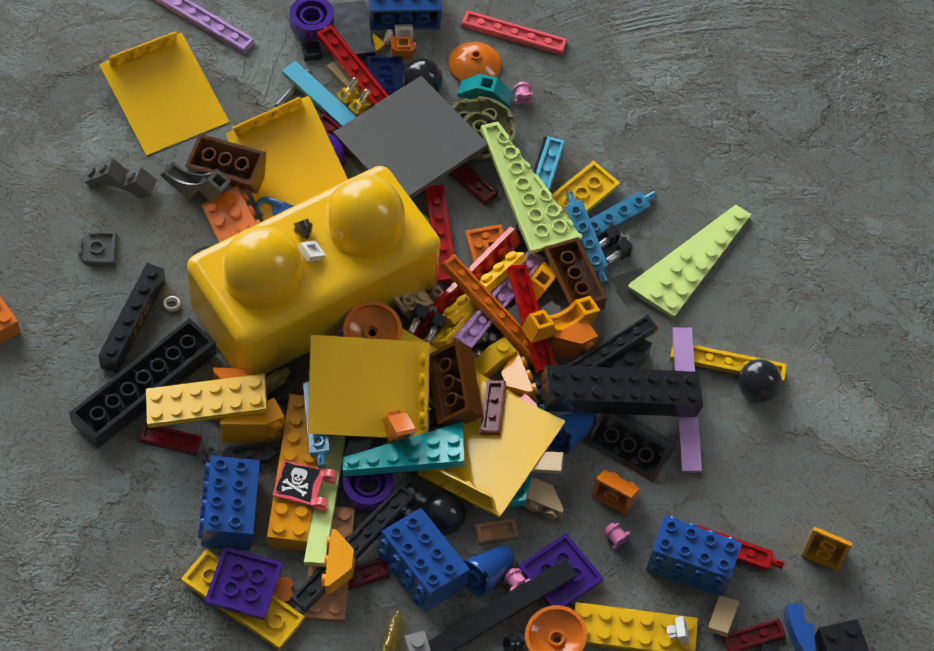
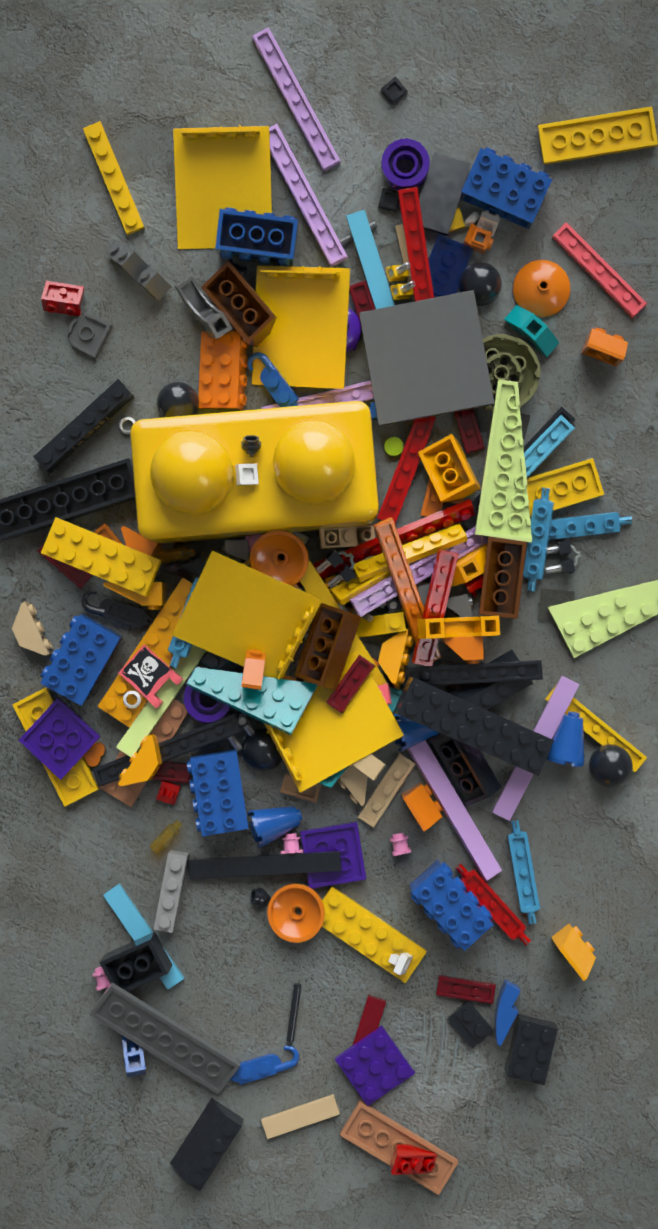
camera: 35 degrees right, 30 degrees up
(61, 229) = (62, 298): none -> red bracket
(62, 125) = (113, 178): none -> yellow plate
(167, 508) = (30, 631): none -> tan slope
(213, 108) = (256, 236): none -> blue brick
(238, 74) = (305, 198): none -> lavender tile
(296, 517) = (138, 699): none -> white piece
(373, 592) = (168, 792): none -> red tile
(480, 211) = (449, 469): none -> light orange slope
(523, 93) = (568, 348): bright pink brick -> none
(552, 293) = (474, 584): none -> red tile
(553, 80) = (605, 347): none -> orange slope
(576, 498) = (386, 790): none -> tan tile
(648, 484) = (454, 810): none -> lavender tile
(713, 378) = (568, 741): none -> blue cone
(723, 616) = (448, 962): tan tile -> none
(741, 507) = (523, 872): none -> dark azure plate

